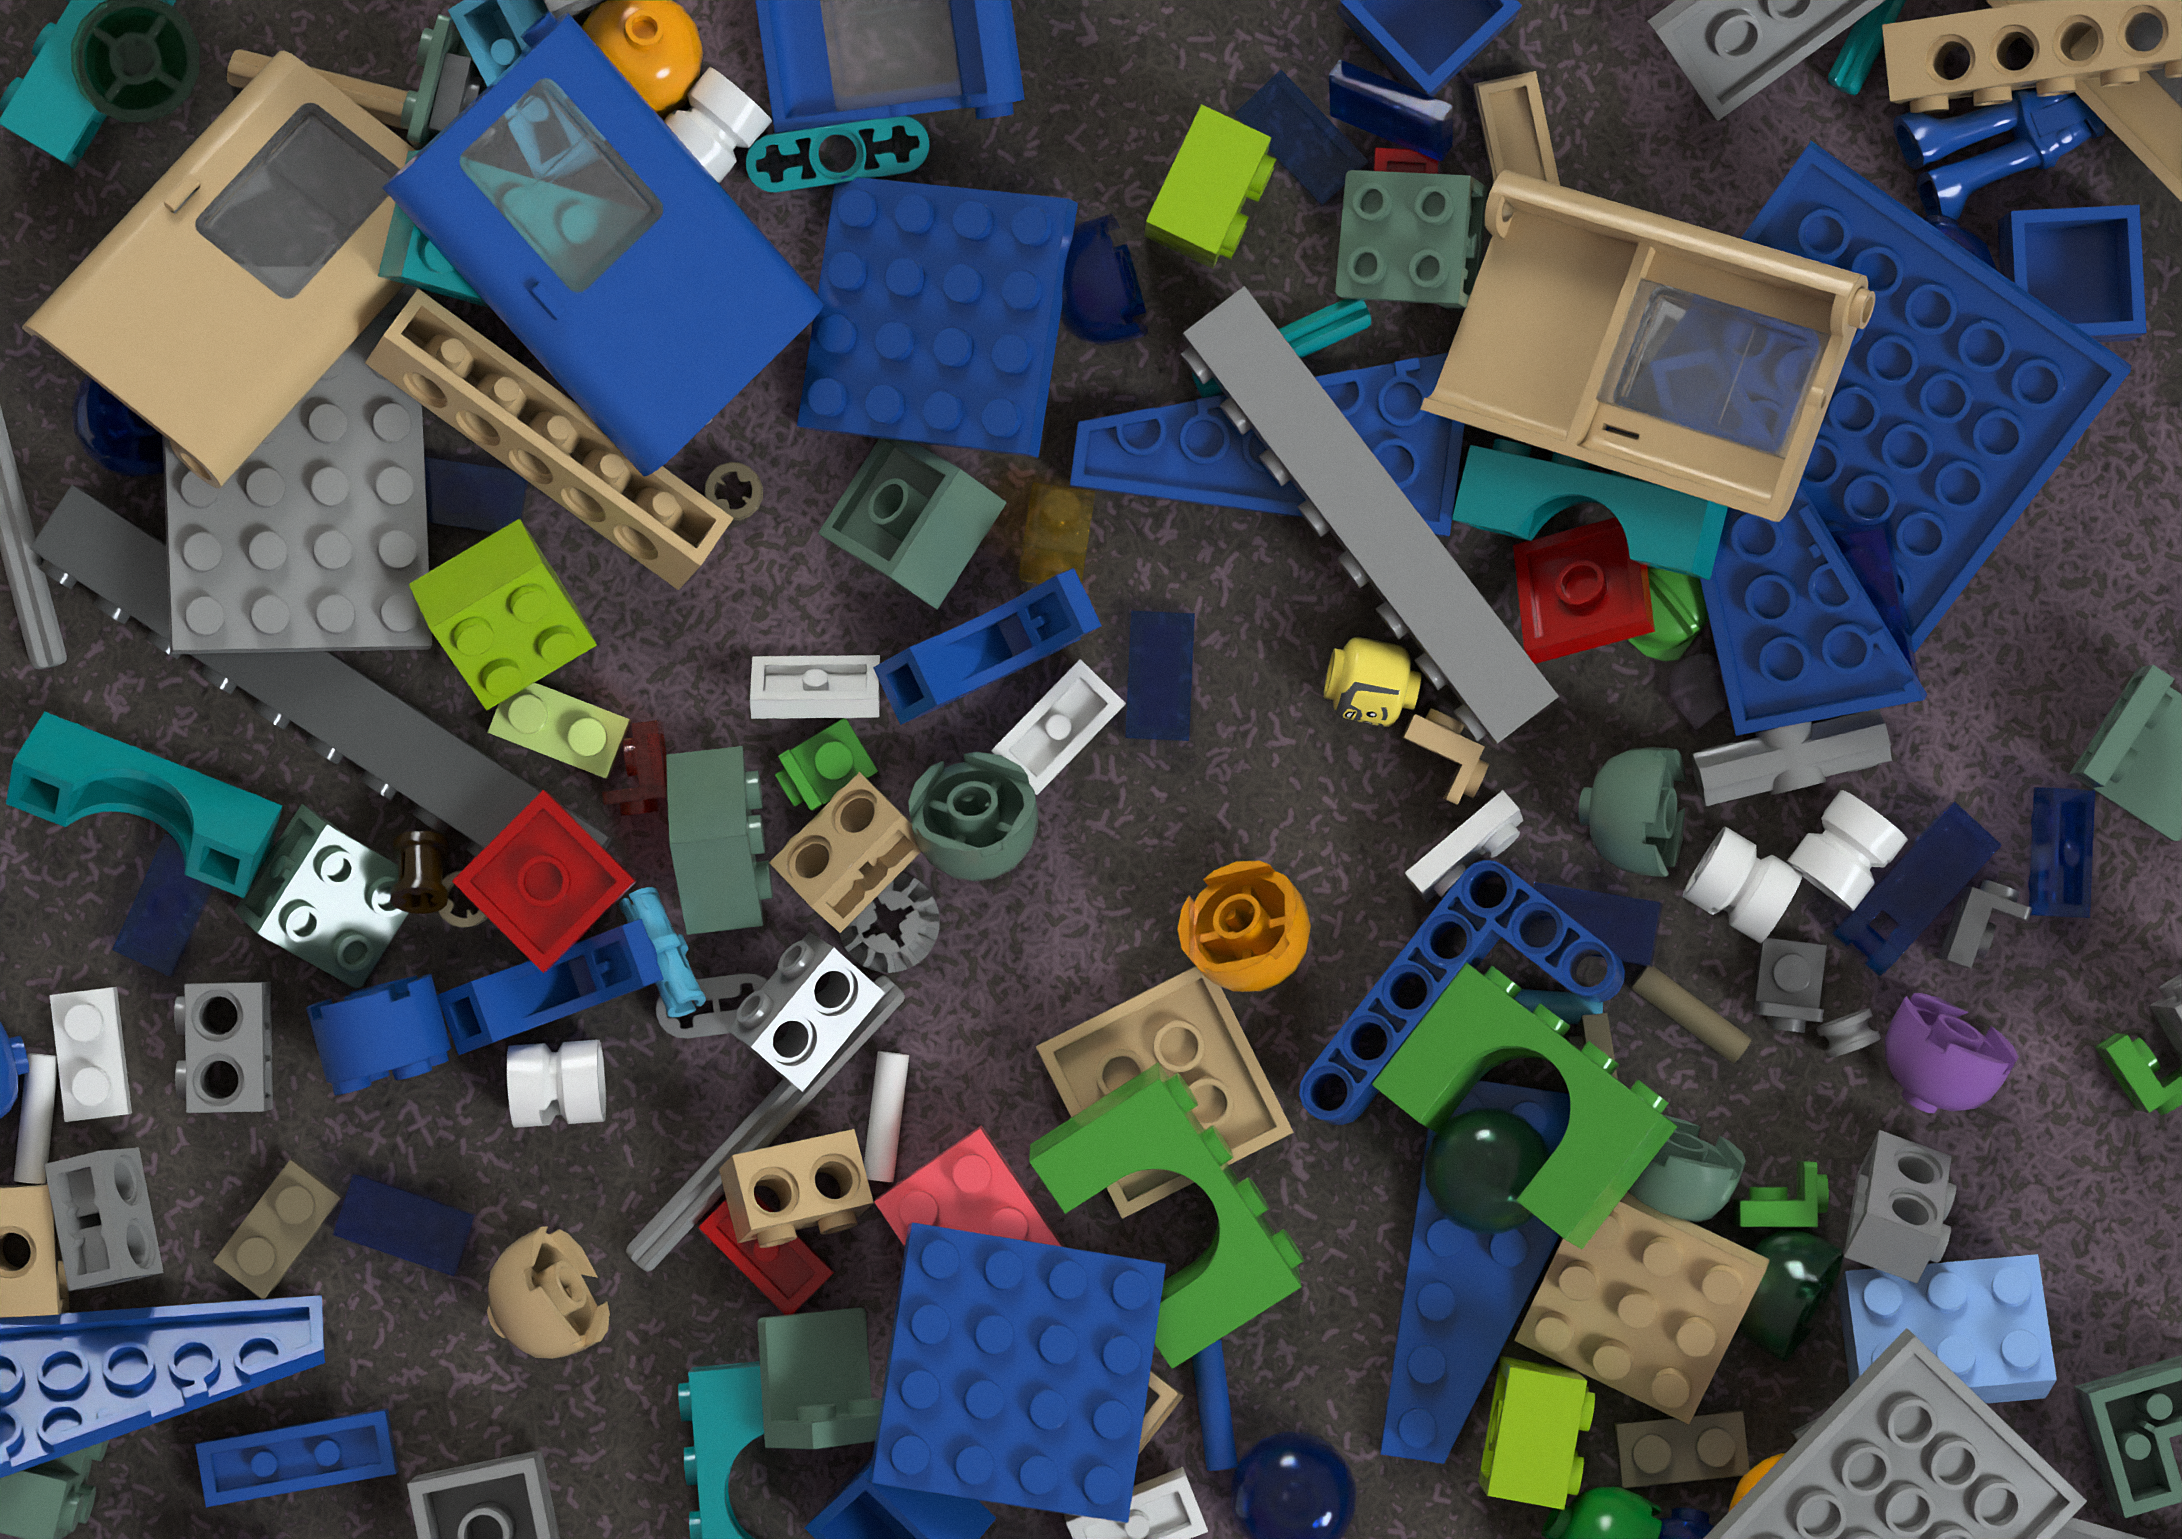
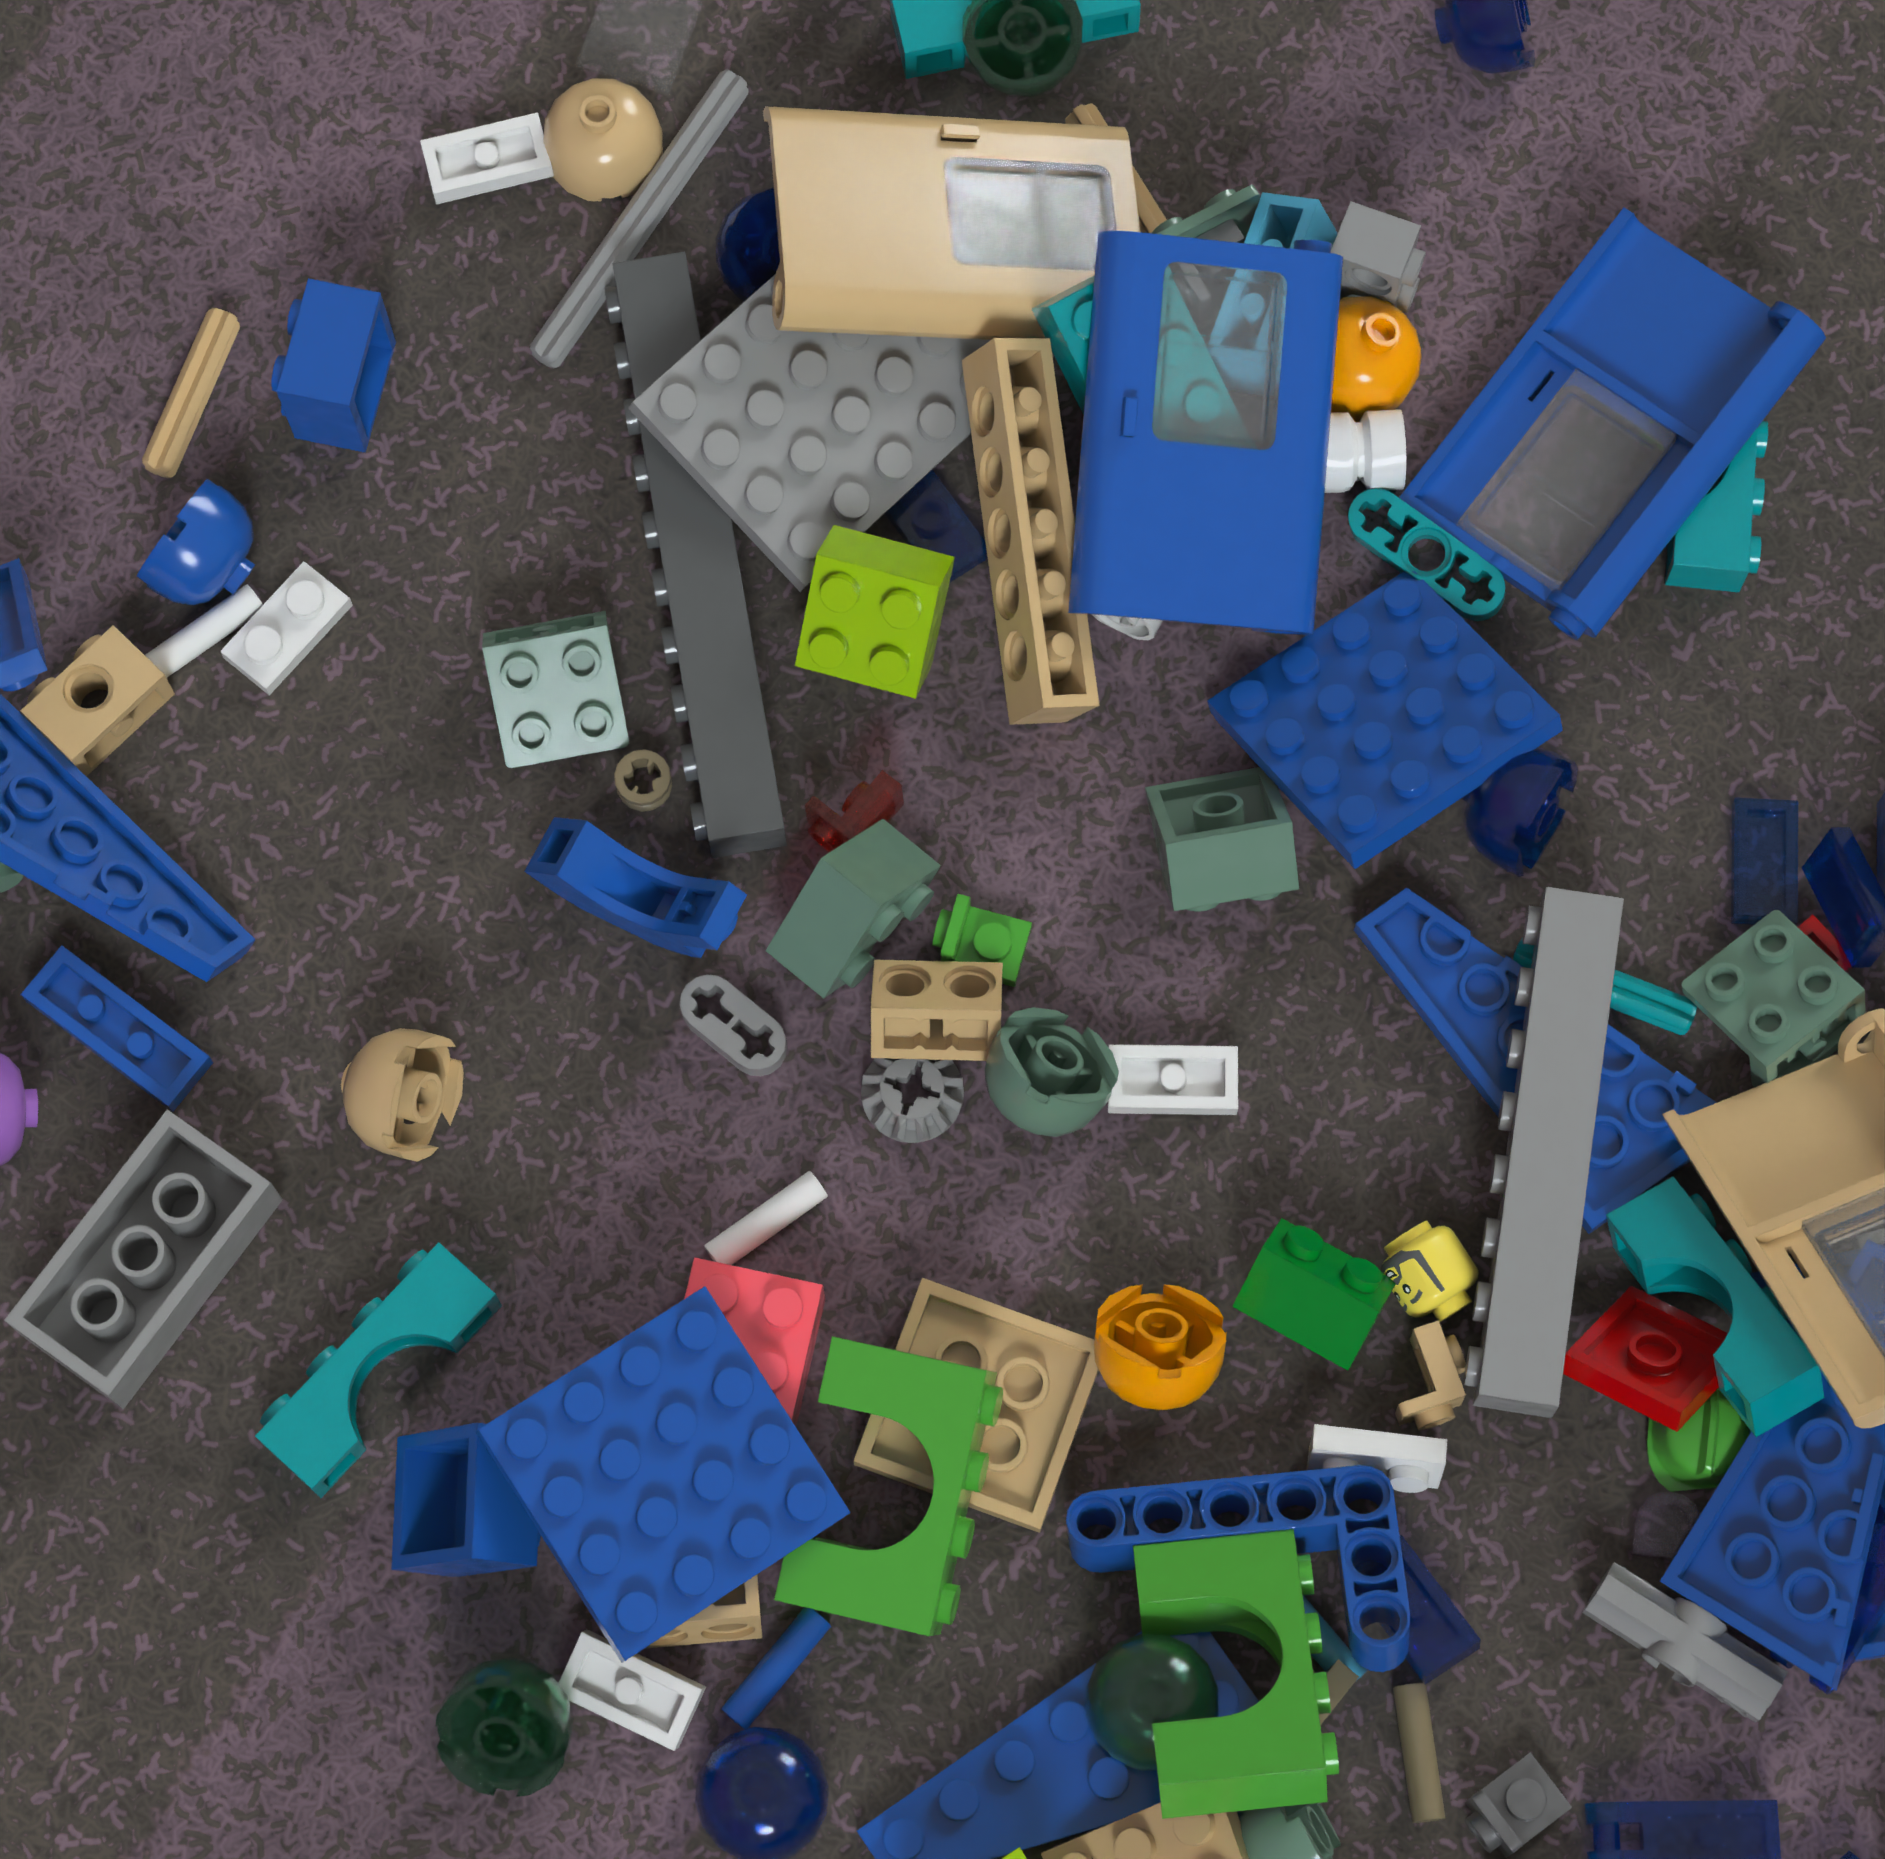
camera: 55 degrees right, 15 degrees down
(80, 772) = (482, 435): teal arch -> none
(103, 1218) = (172, 732): light grey brick -> none
(163, 912) = (446, 586): clear blue plate -> none
(244, 1047) = (391, 720): light grey brick -> none
(278, 1229) = (277, 867): dark tan plate -> none
(379, 1031) = (488, 797): blue brick -> none
(404, 1224) = (362, 950): clear blue plate -> none
(420, 872) = (638, 721): dark brown bush -> none
(544, 881) = (709, 806): red plate -> none
(556, 1083) = (562, 953): white wheel -> none
(561, 728) = (830, 734): yellowish green plate -> none
(679, 982) = (738, 950): medium azure pin -> none
(745, 476) = (1137, 701): dark tan bush -> none
(753, 1134) = (678, 1138): light grey axle -> none
(782, 1272) = (584, 1223): red plate -> none
(791, 1174) = (659, 1180): tan brick -> none
(814, 687) = (1033, 881): white plate -> none
(816, 1021) = (788, 1100): light grey brick -> none
(816, 1380) = (519, 1336): sand green bracket -> none
(987, 647) = (1179, 975): blue arch -> none
(1056, 532) = (1308, 951): clear yellow bracket -> none
(1160, 676) = (1281, 1120): clear blue tile -> none
(1208, 186) = (1665, 818): lime brick -> none
(1312, 780) = (1314, 1293): none -> green brick
(1636, 810) = (1529, 1557): sand green cylinder -> none
(1743, 885) = (1554, 1694): white wheel -> none
(1848, 848) = (1659, 1750): white wheel -> none

